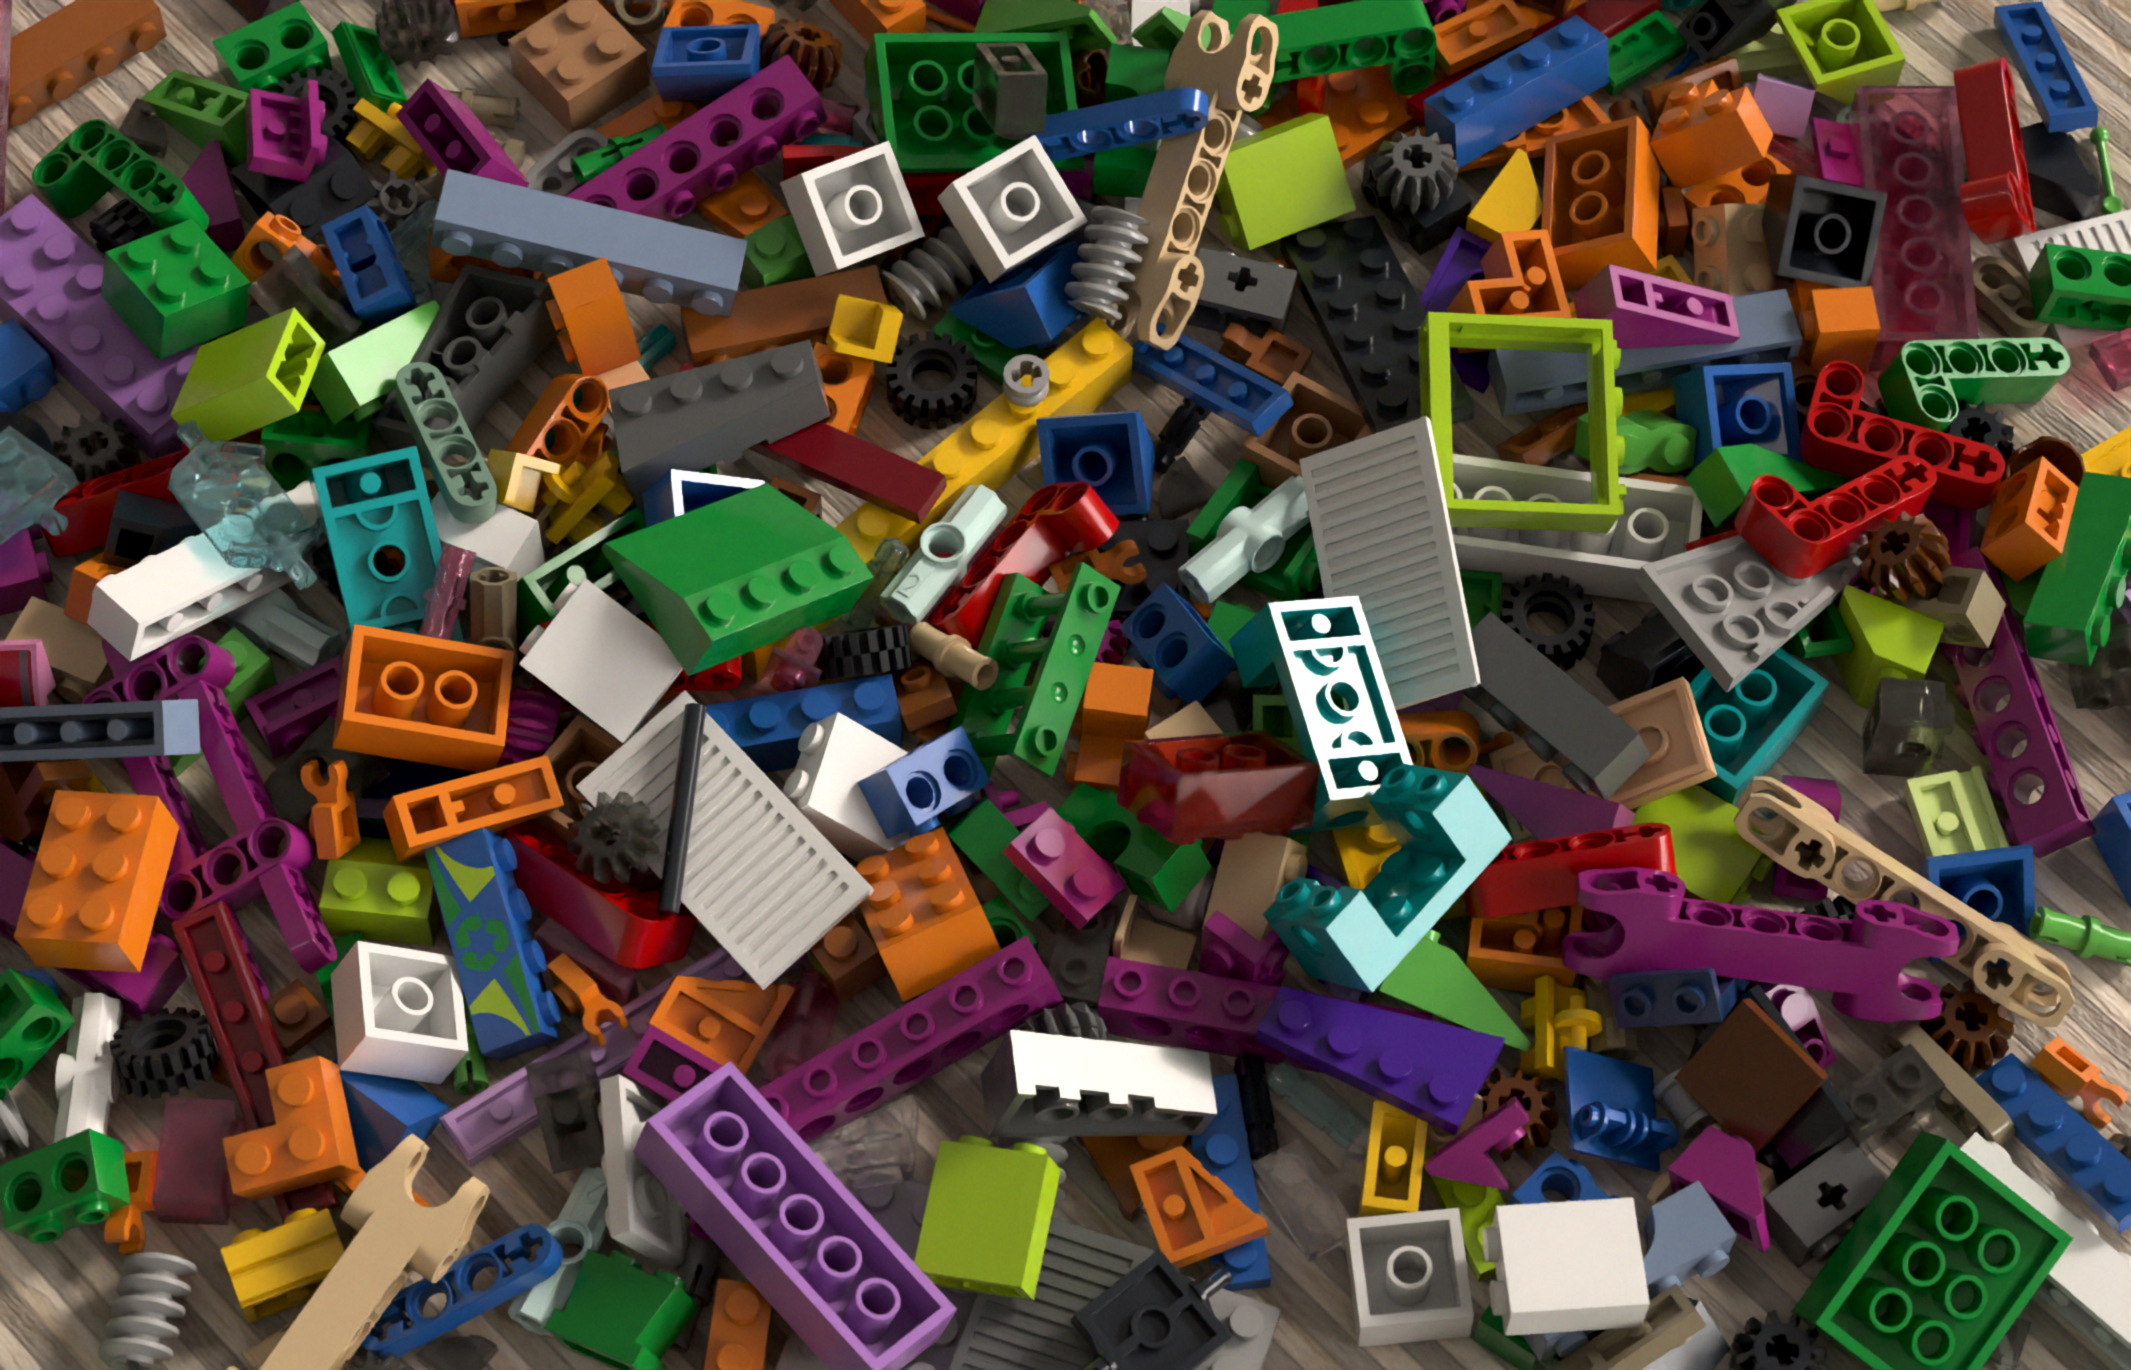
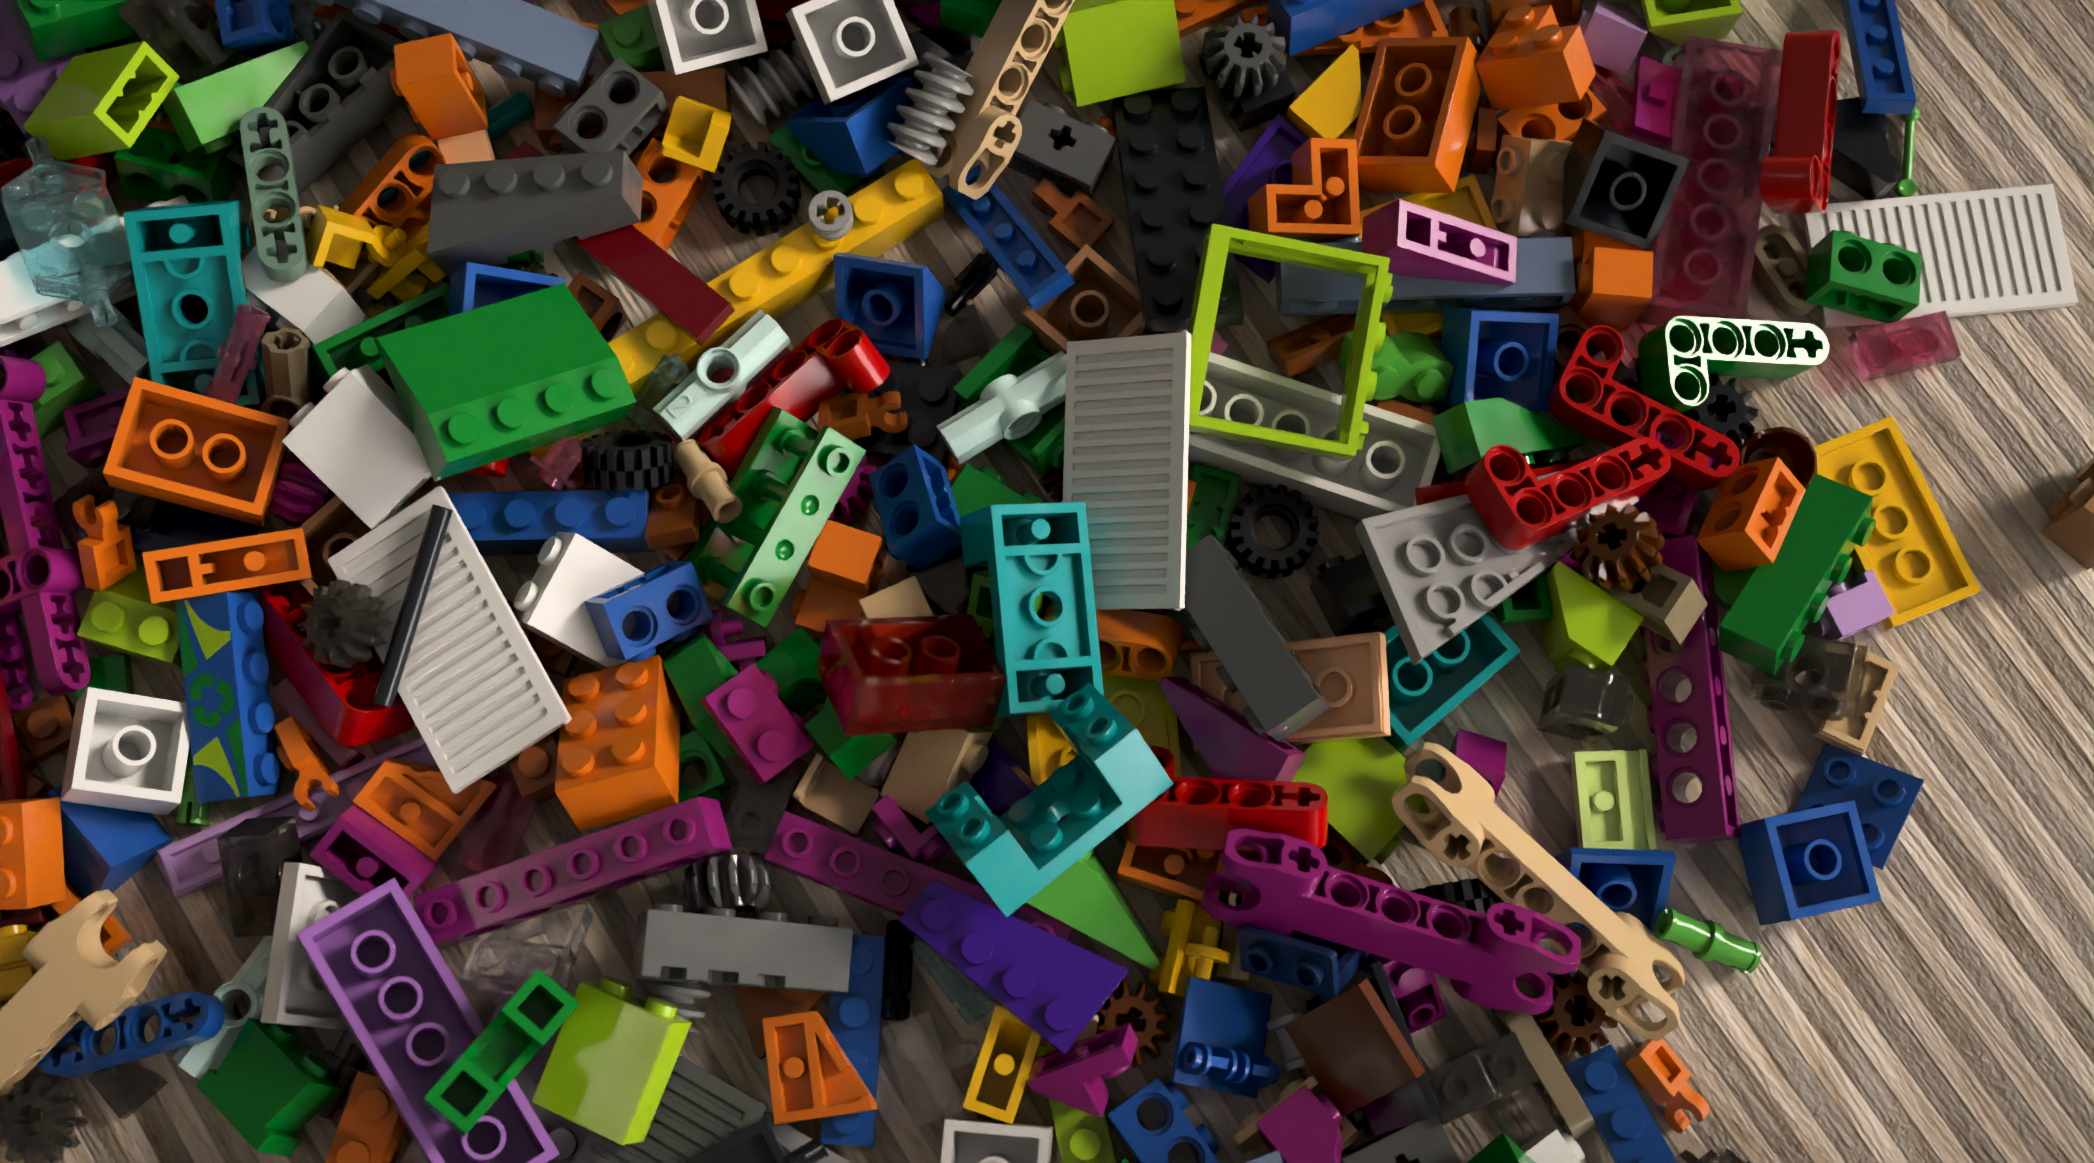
camera: 10 degrees right, 15 degrees up
(775, 324) = (621, 124): none -> dark grey brick
(883, 1201) = (499, 1053): none -> green arch

